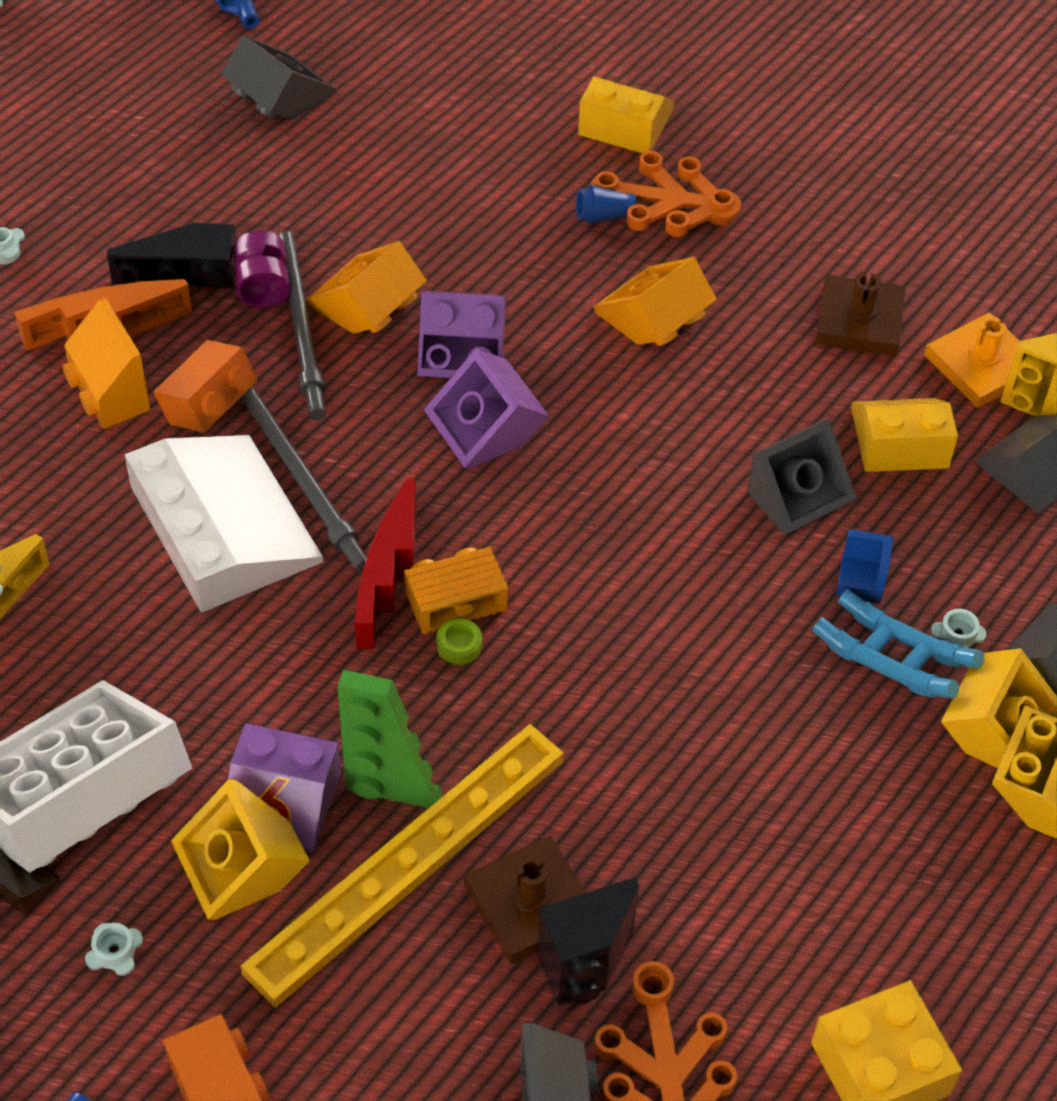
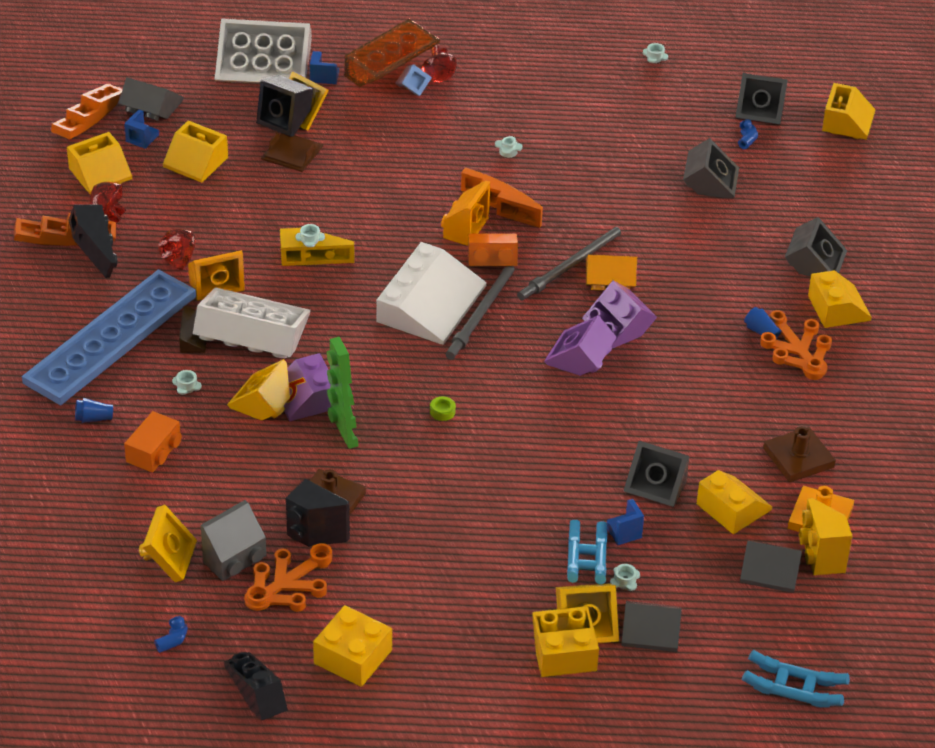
camera: 55 degrees right, 10 degrees down
(192, 252) = (563, 203): black slope -> none
(261, 269) = (581, 230): magenta wheel -> none
(388, 556) = (462, 358): red slope -> none
(400, 866) = (309, 447): yellow plate -> none
(456, 587) = (466, 389): light orange brick -> none
(519, 77) = (815, 249): none -> dark grey slope
(658, 302) = (715, 373): light orange slope -> none

